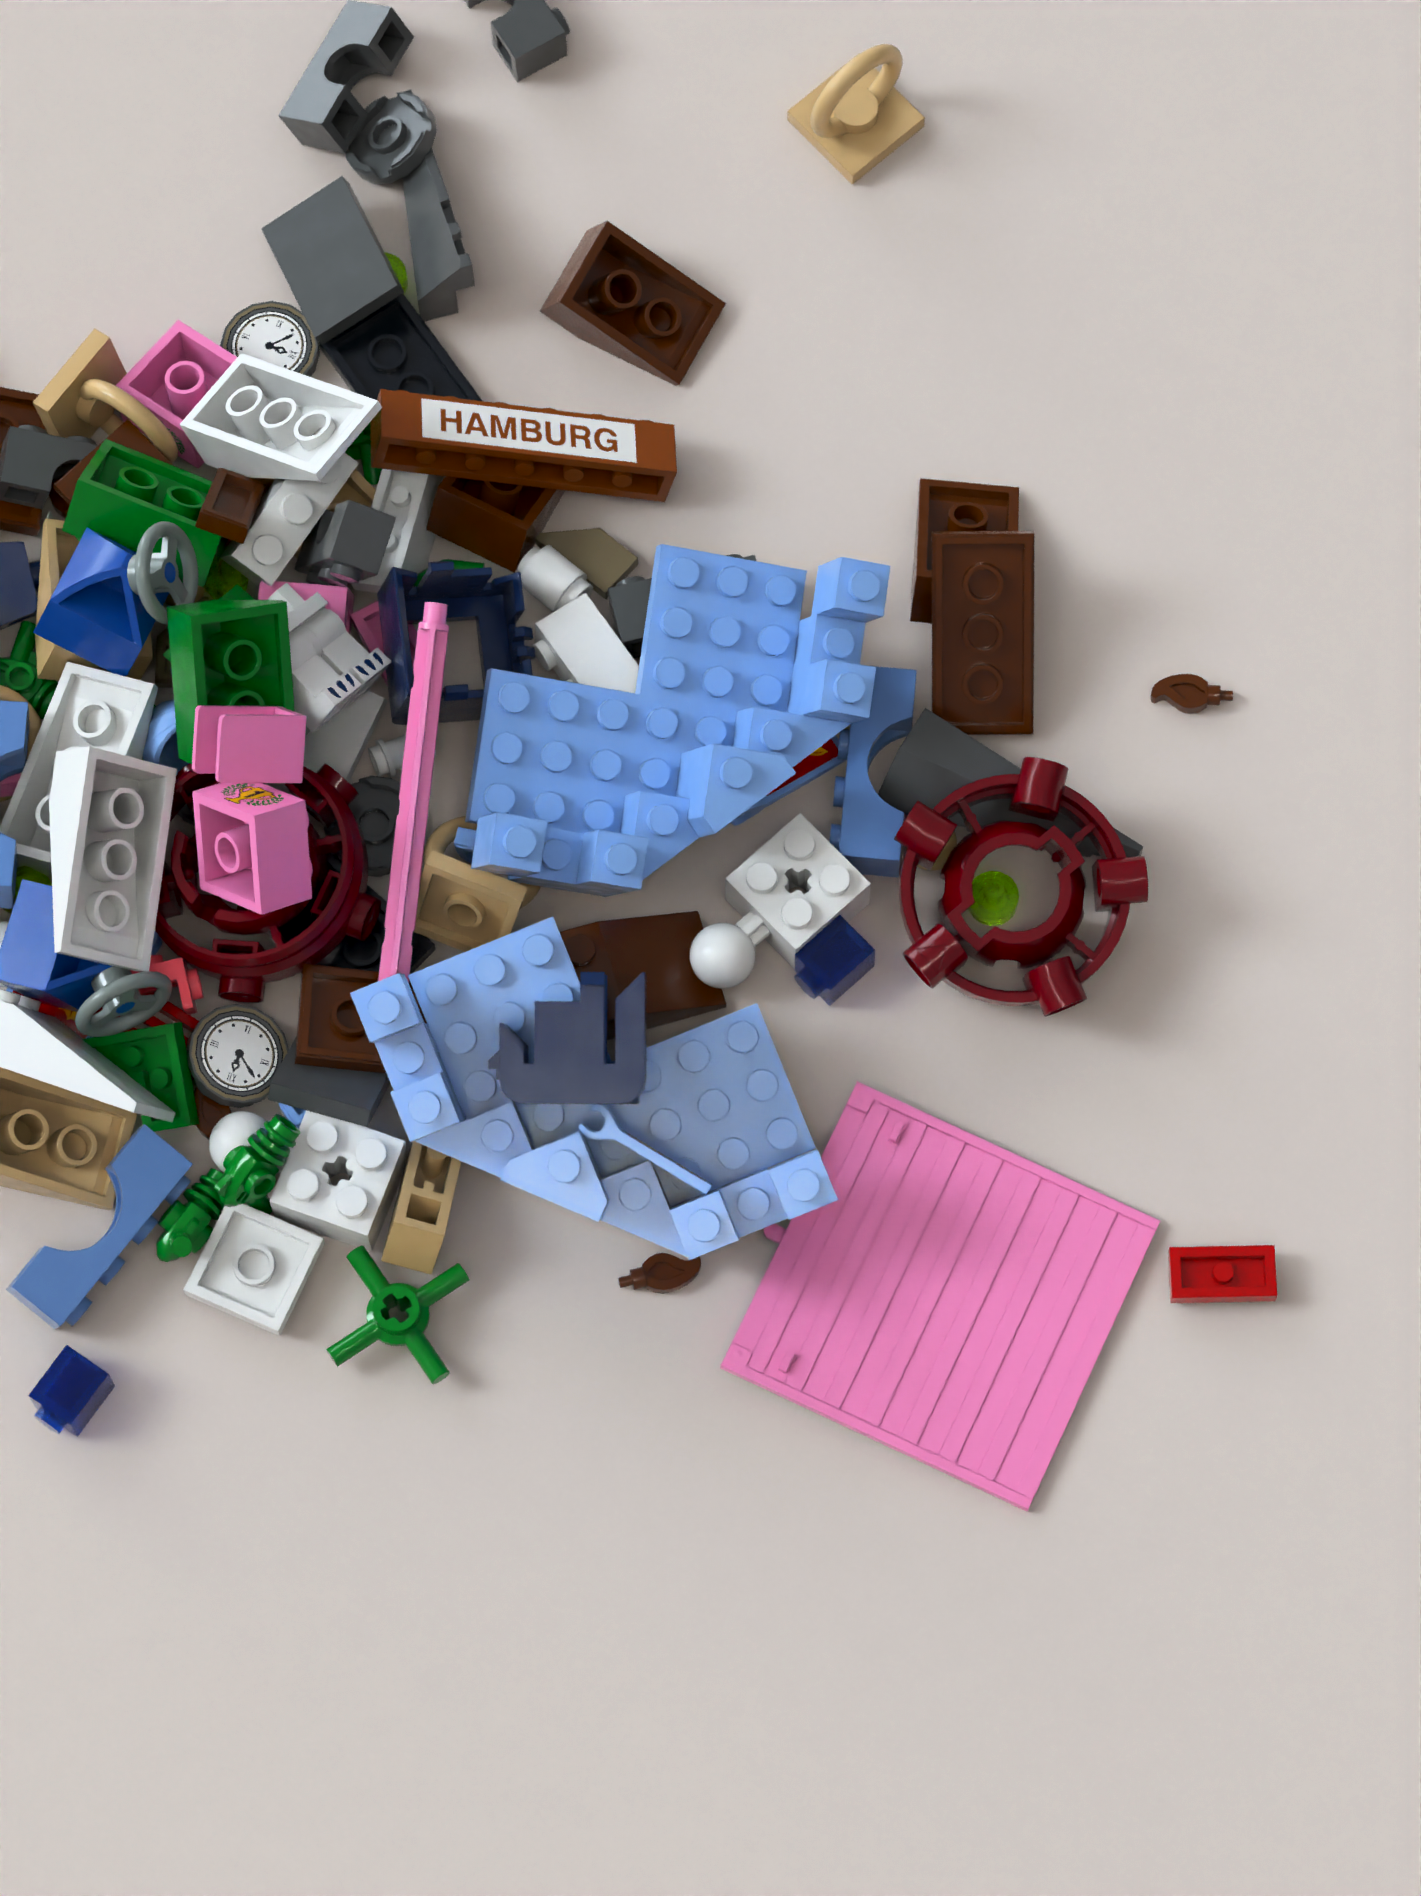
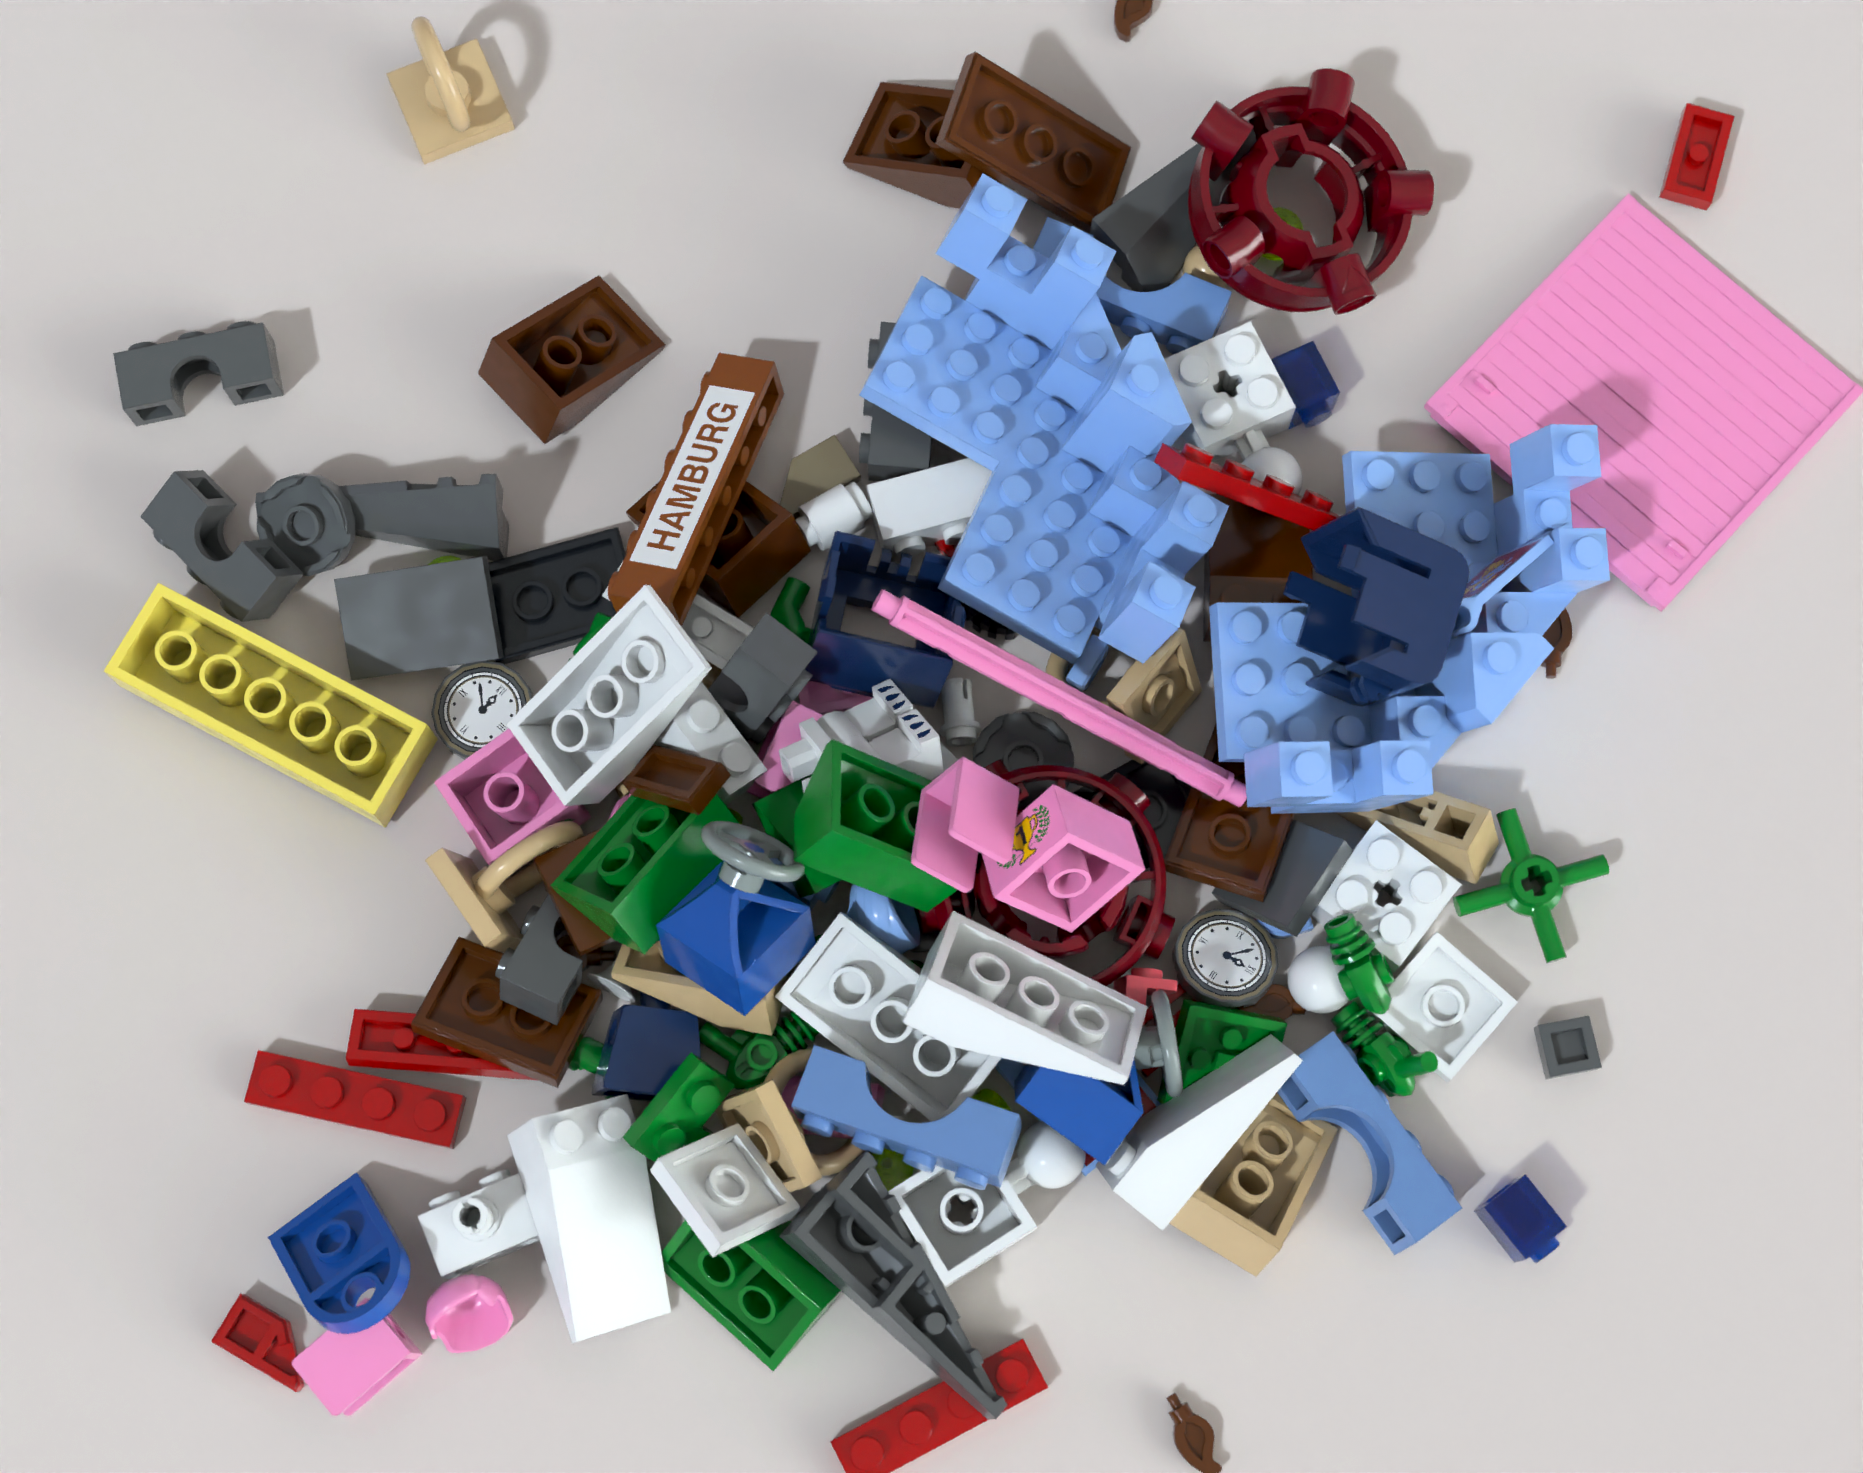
camera: 75 degrees left, 5 degrees up
(210, 169) = (271, 704): none -> light yellow brick
(250, 1392) = (1567, 1047): none -> dark grey plate
(680, 921) = (1236, 483): none -> red plate

